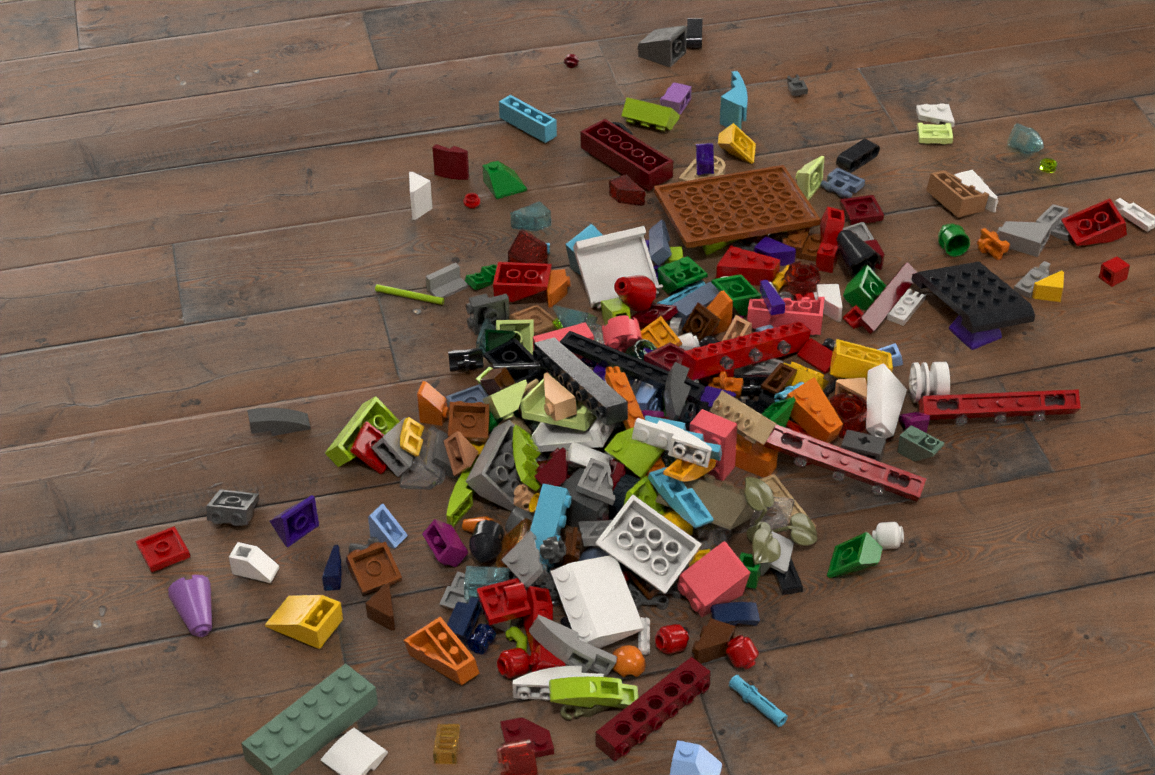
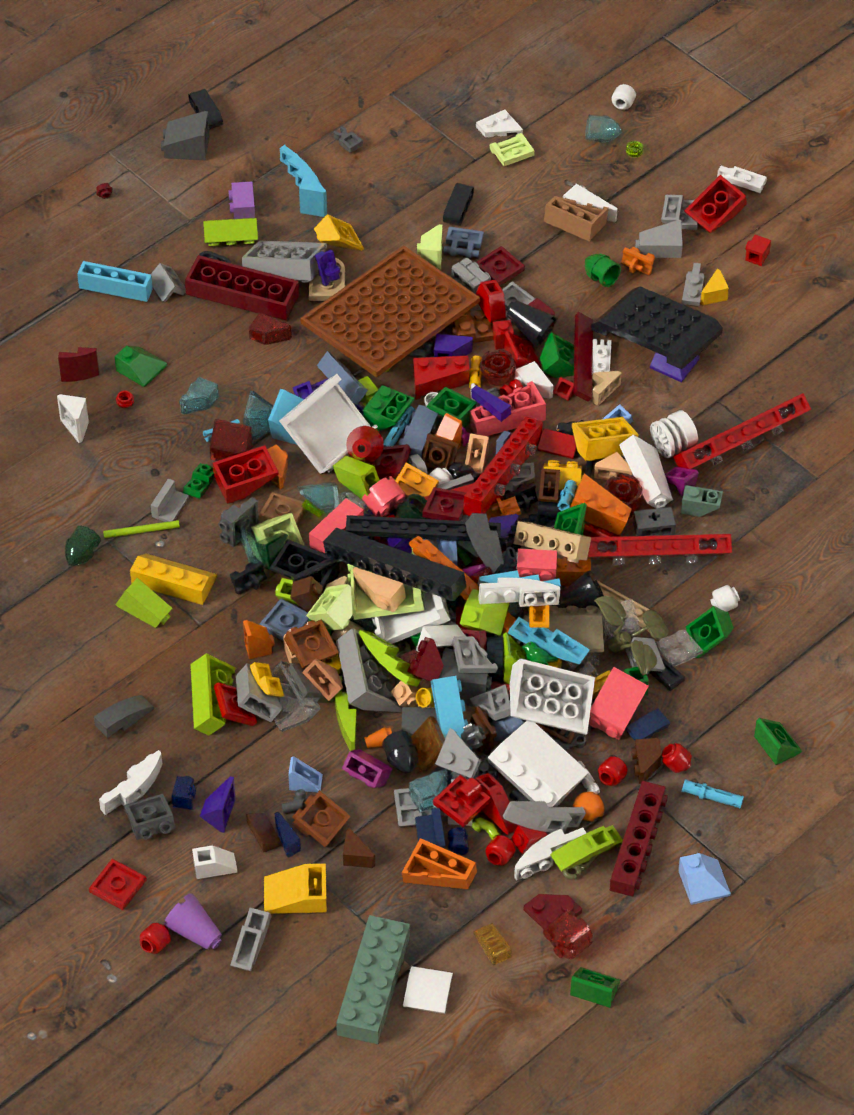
camera: 30 degrees left, 10 degrees up
(154, 604) = (154, 938): none -> red head
(234, 641) = (251, 939): none -> light grey slope
(248, 476) = (139, 781): none -> white slope
(276, 499) = (183, 792): none -> clear blue brick
(317, 557) = (263, 831): none -> reddish brown slope
(346, 286) = (80, 545): none -> clear green helmet
(362, 345) = (144, 604): none -> lime slope
(403, 337) = (173, 578): none -> yellow slope
(556, 243) = (257, 415): none -> clear light blue slope
(570, 132) = (166, 281): none -> light grey panel
(663, 506) = (537, 654): none -> green animal
(673, 145) = (285, 259): none -> light grey slope
(752, 468) = (581, 592): none -> black cone
(813, 559) = (680, 640): none -> clear piece
(829, 199) = (469, 274): none -> light grey brick
(834, 273) = (521, 350): none -> red slope
(856, 678) = (775, 740): none -> green slope
(894, 326) = (604, 384): none -> tan slope
(1062, 124) = (623, 97): none -> white head

